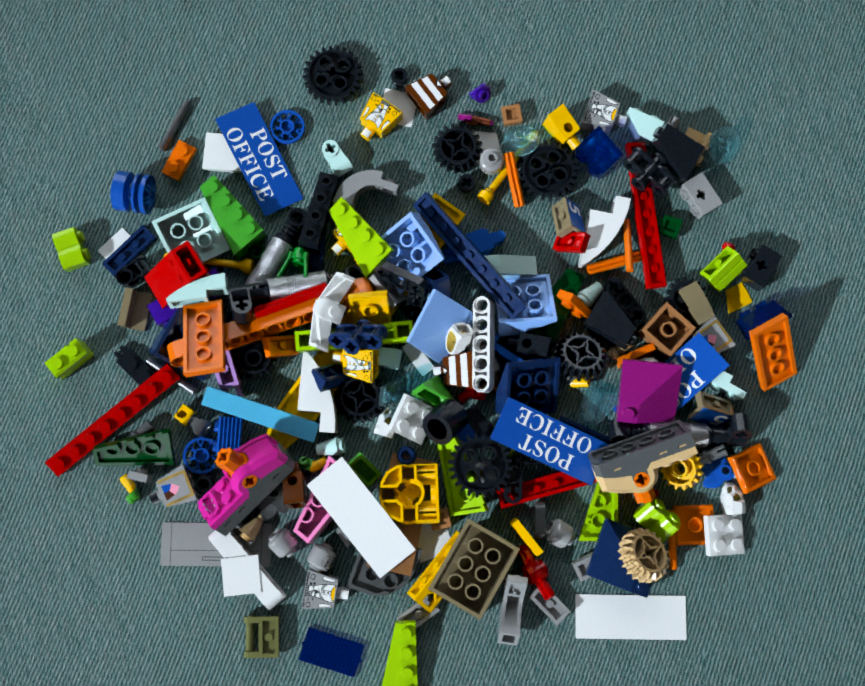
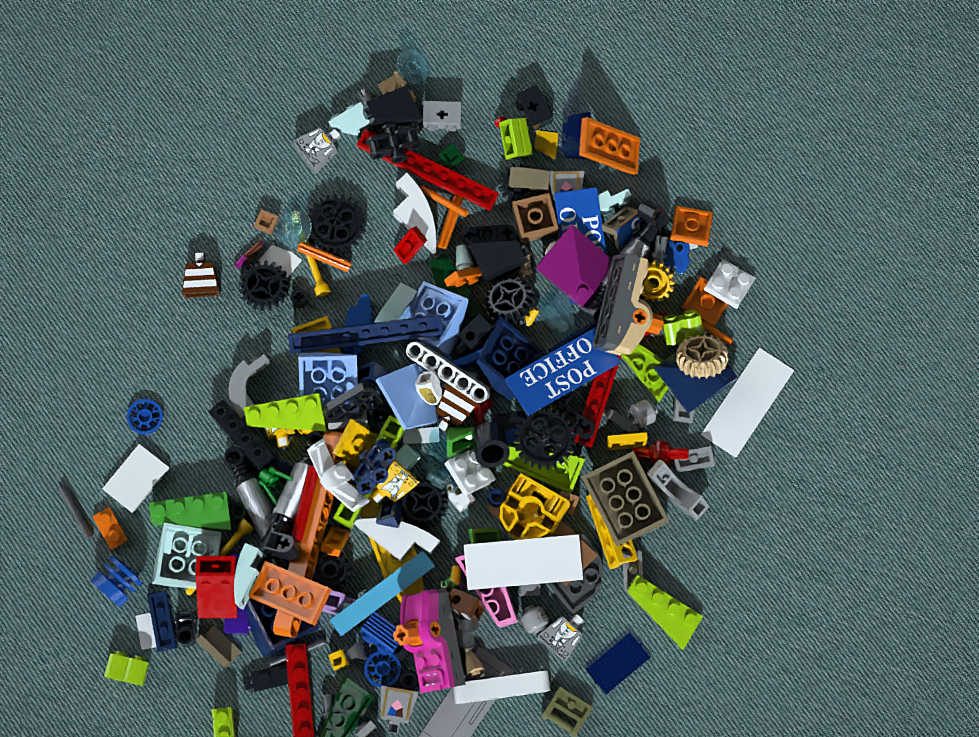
camera: 55 degrees left, 5 degrees down
(241, 575) = (506, 694): white sticker -> none
(259, 159) = (157, 458): blue sticker -> none
(282, 543) = (501, 645): light grey head -> none
(333, 446) = (448, 554): light aqua cone -> none
(336, 60) = (114, 337): black gear -> none
(338, 160) = (206, 392): light aqua piece -> none
(379, 117) = (192, 333): torso -> none
(398, 83) = (171, 297): black bush -> none
(402, 102) = (192, 313): white sticker -> none
(431, 541) = (581, 522): white sticker -> none
(481, 93) = (229, 234): dark purple plate -> none
(491, 161) = (296, 265): light grey head -> none
(562, 127) = (302, 187): yellow torso -> none
(567, 217) = (387, 234): dark tan panel -> none
(599, 153) = (350, 173): clear blue slope -> none
(637, 354) = (541, 246): orange tile -> none
(732, 500) = (706, 258): white rock -> none

